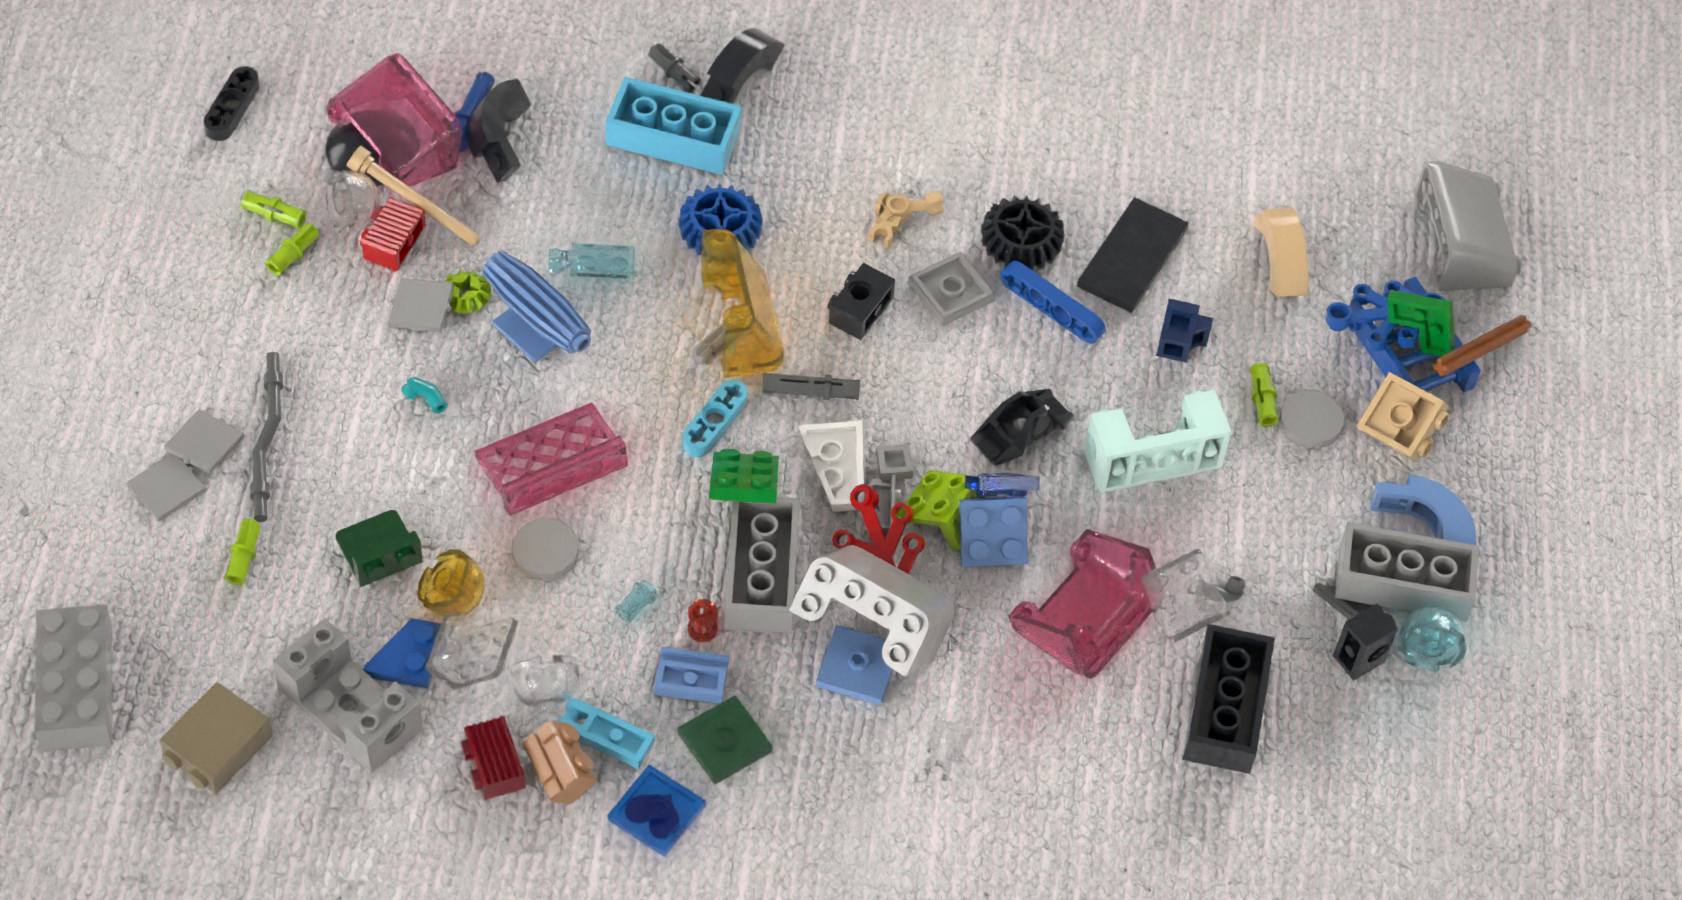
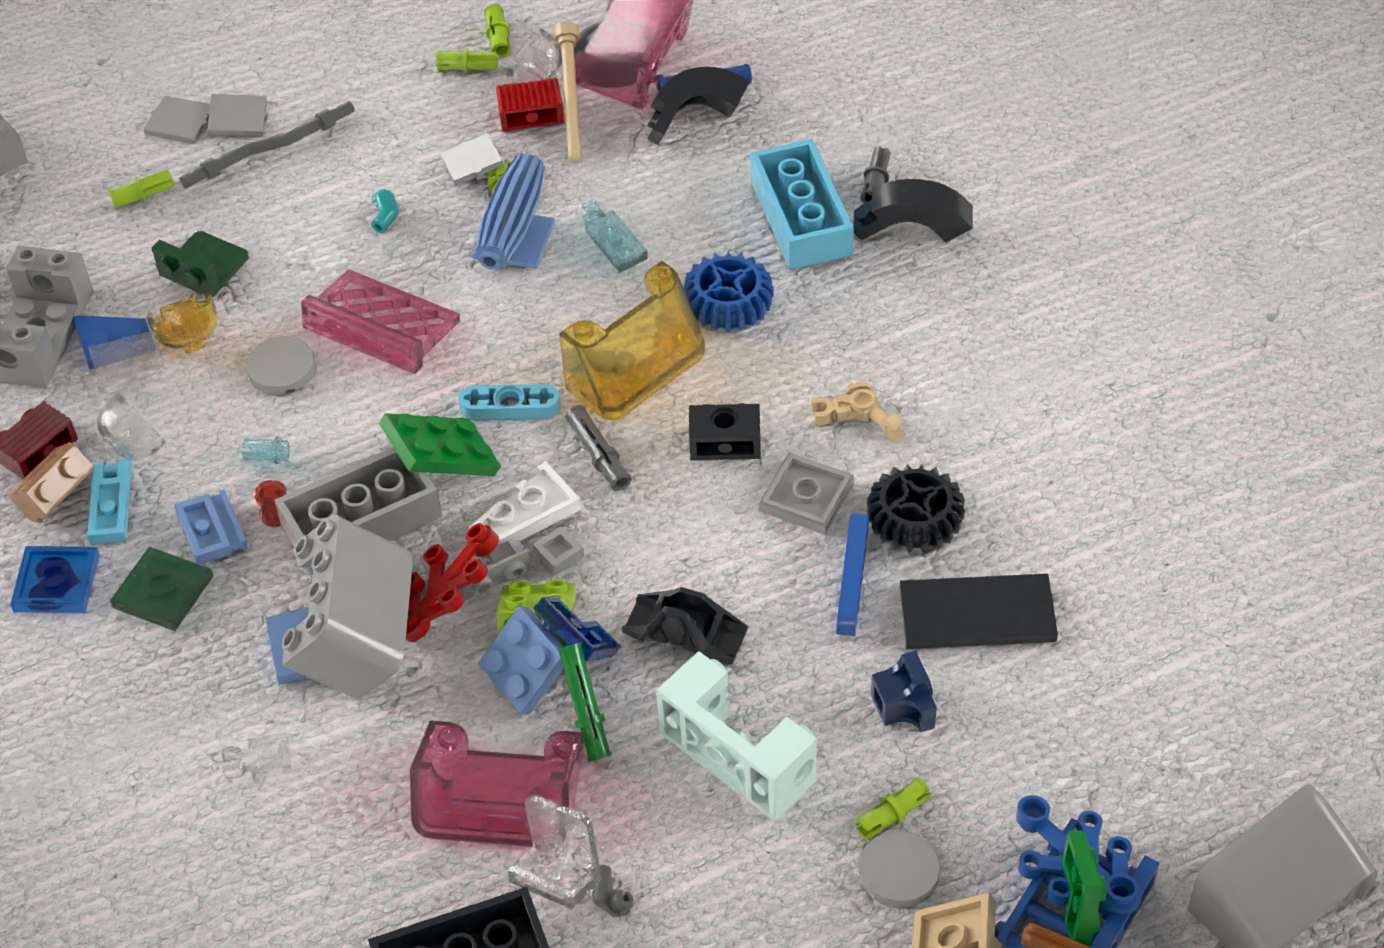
camera: 65 degrees right, 5 degrees down
(1075, 518) = (597, 746): none -> green pin
(1286, 251) = (1083, 724): tan arch -> none

